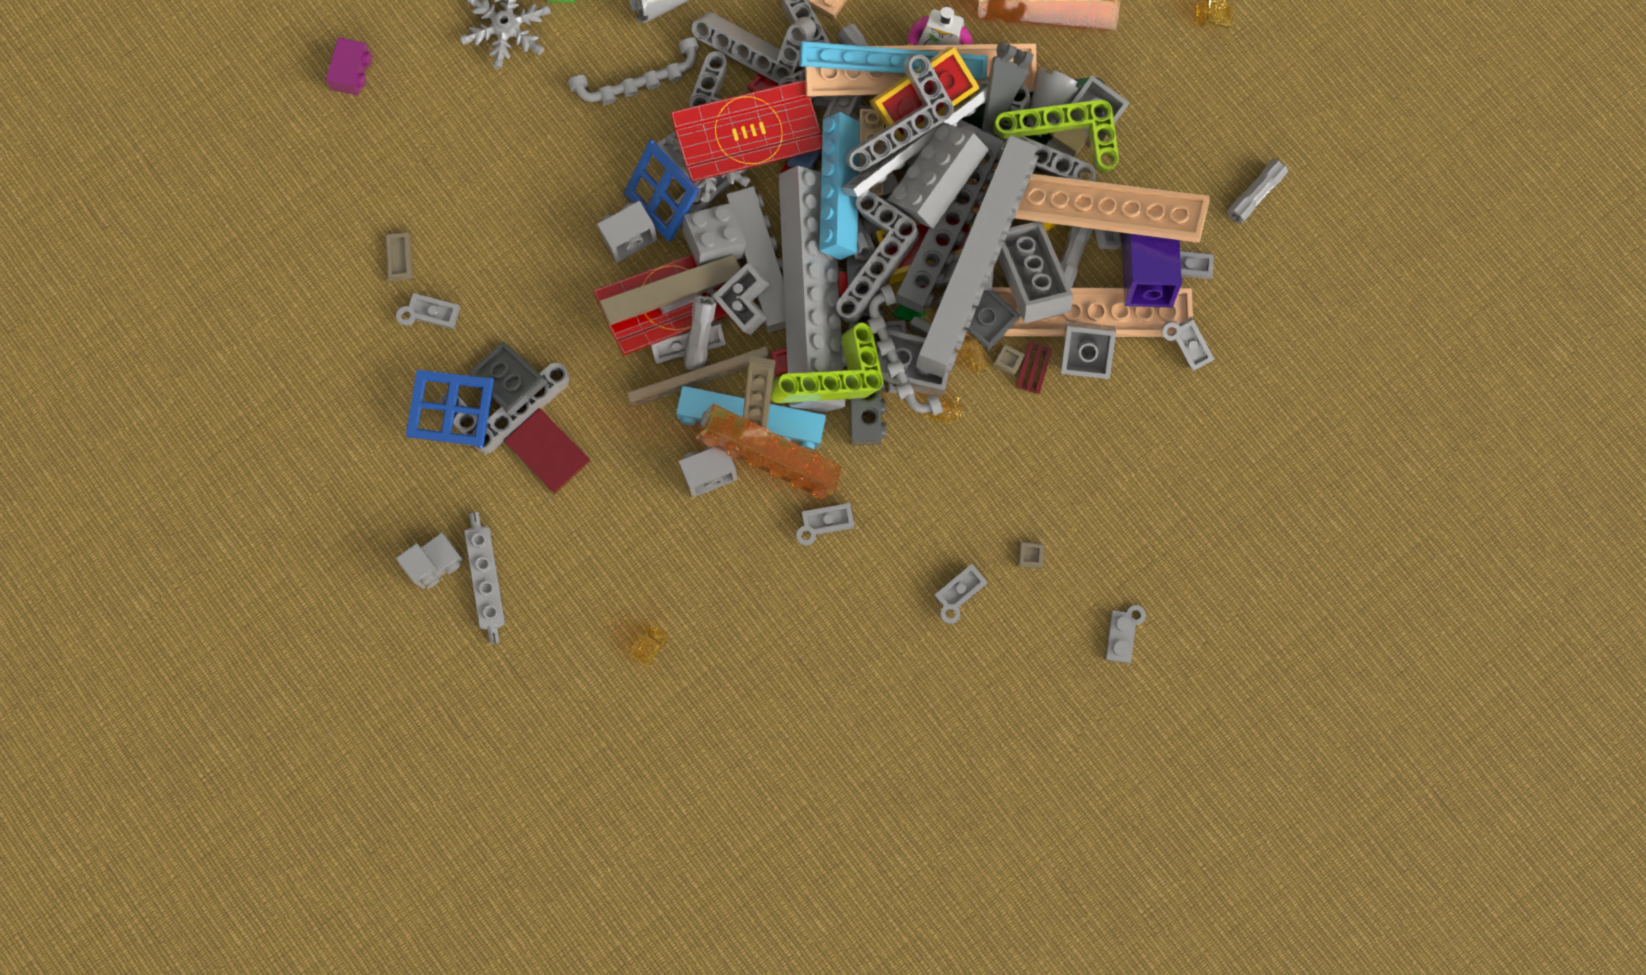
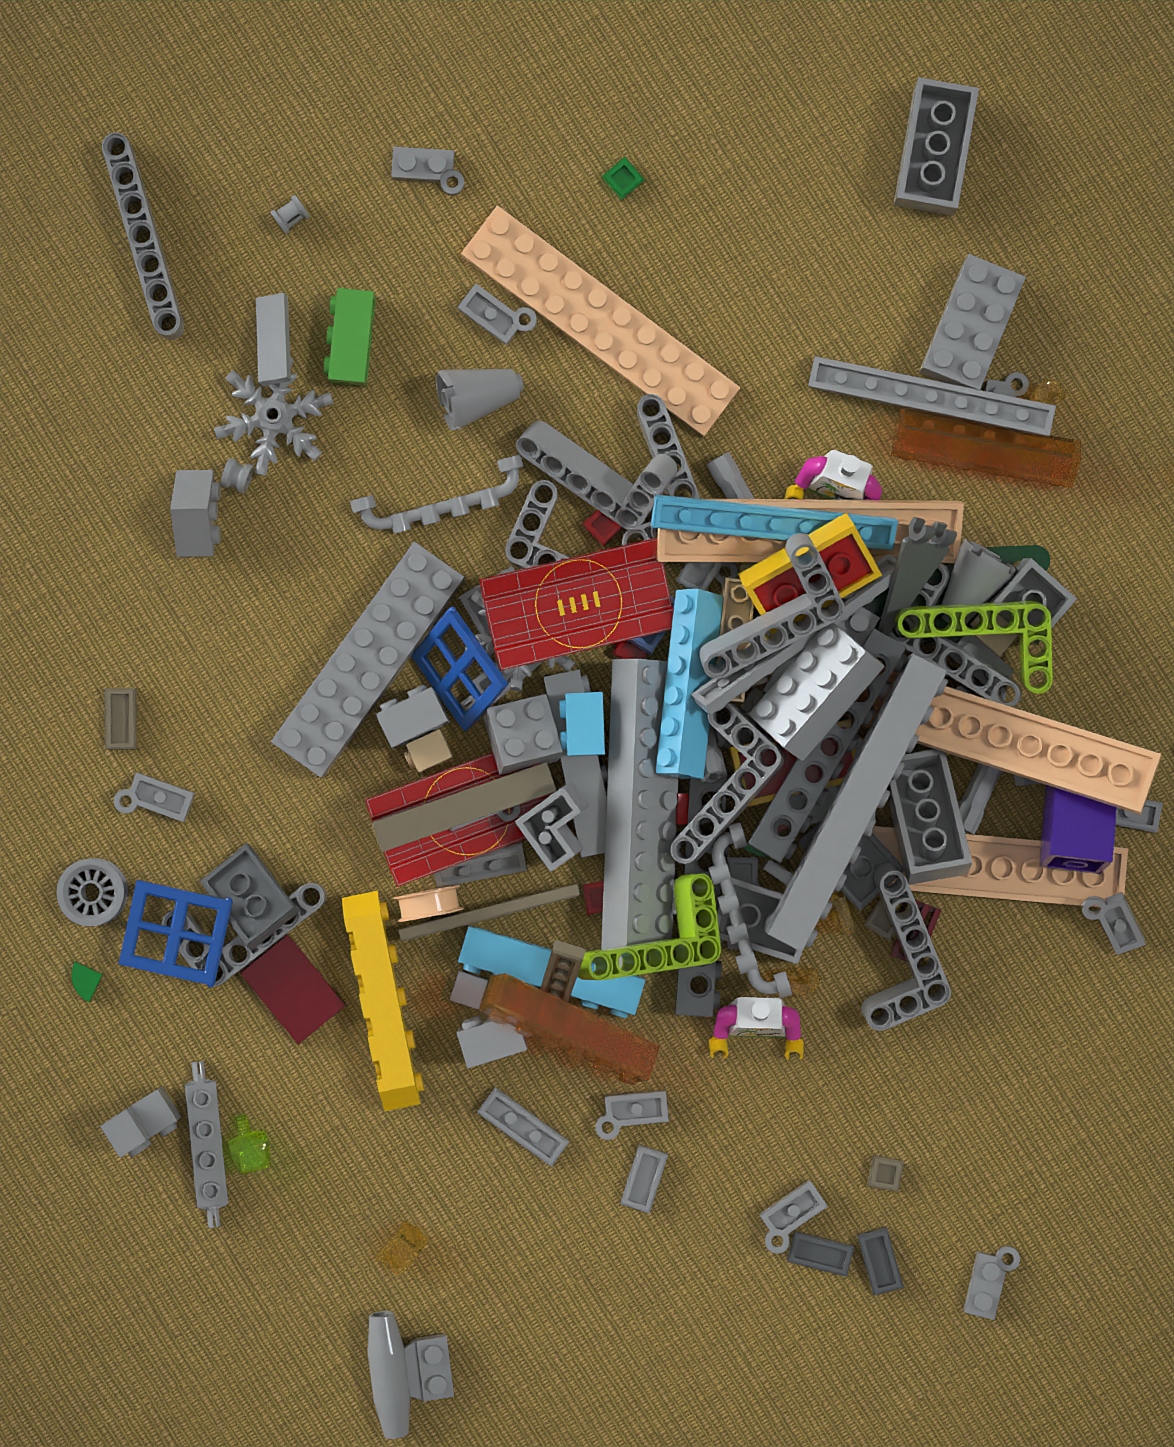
camera: 10 degrees right, 10 degrees up
(348, 66) = (68, 458): magenta brick -> none
(367, 373) = (72, 910): none -> light grey wheel
(380, 457) = (85, 980): none -> green tile
(446, 90) = (194, 513): none -> light grey brick
(479, 69) = (237, 475): none -> light grey wheel
(519, 577) = (249, 1149): none -> clear neon green piece
(588, 196) = (368, 660): none -> light grey brick
(618, 451) = (382, 1000): none -> yellow brick
(641, 258) = (428, 751): none -> tan brick
(649, 369) = (428, 903): none -> light nougat wheel
(656, 746) = (404, 1372): none -> light grey plate
(685, 439) = (469, 989): none -> light grey tile
(702, 316) = (500, 846): light grey axle -> none
(738, 543) = (523, 1126): none -> light grey tile
(761, 222) = (583, 724): none -> medium azure brick
(838, 576) = (644, 1178): none -> light grey tile
(917, 438) = (757, 1019): none -> torso
(985, 623) = (820, 1253): none -> dark grey tile
(1032, 377) = (913, 951): none -> light grey beam
(1034, 625) = (880, 1260): none -> dark grey tile
(1088, 349) = (985, 922): light grey brick -> none

